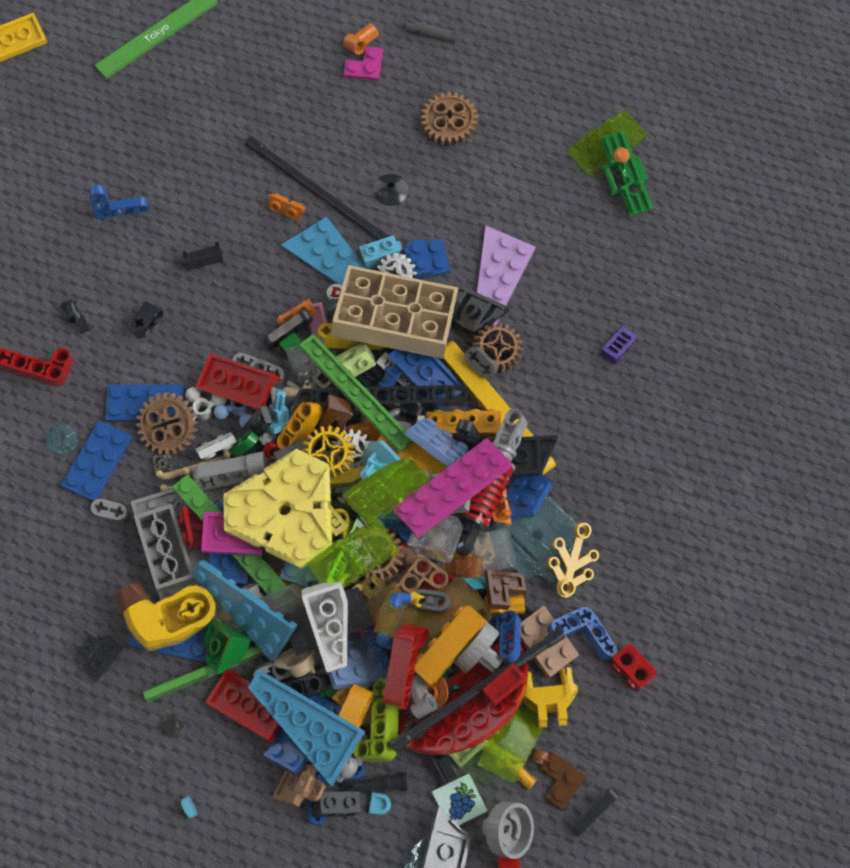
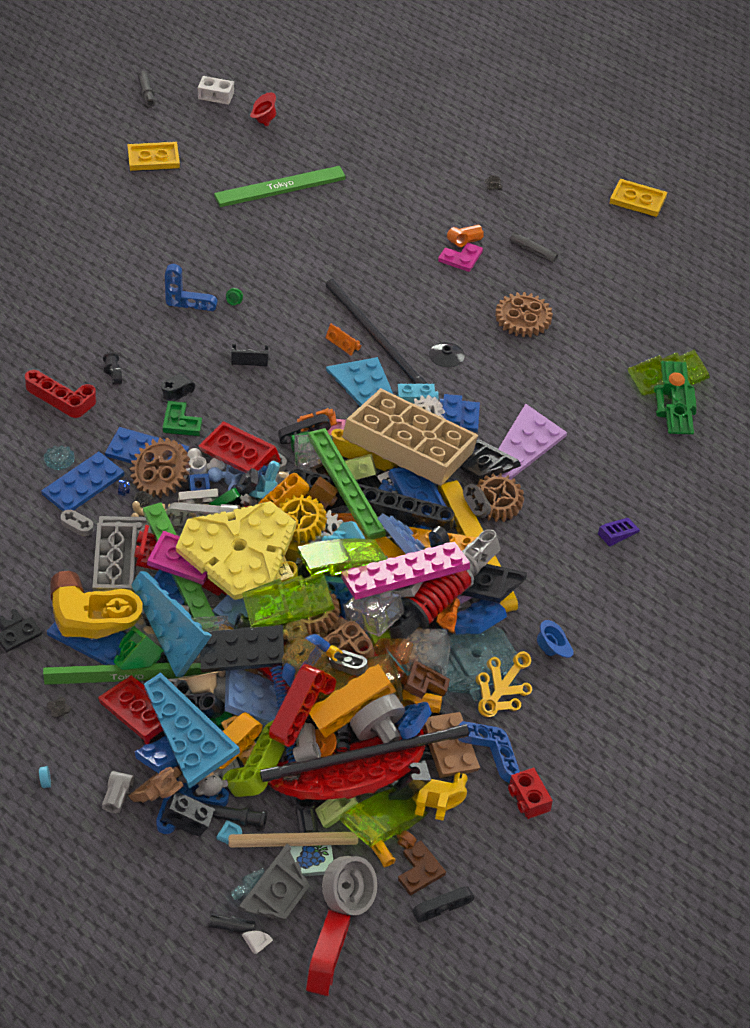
camera: 15 degrees right, 20 degrees down
(138, 454) = (123, 487): none -> clear blue plate
(161, 189) = (234, 296): none -> green plate
(163, 361) = (177, 423): none -> green plate
(215, 430) = (203, 478): none -> blue plate
(260, 794) = (117, 790): none -> light grey piece
(327, 613) = (242, 638): white wedge -> none
(438, 795) = (293, 839): none -> tan axle
(504, 684) = (392, 752): red plate -> none
(532, 699) = (411, 782): none -> black hinge
(601, 493) = (553, 640): none -> blue piece

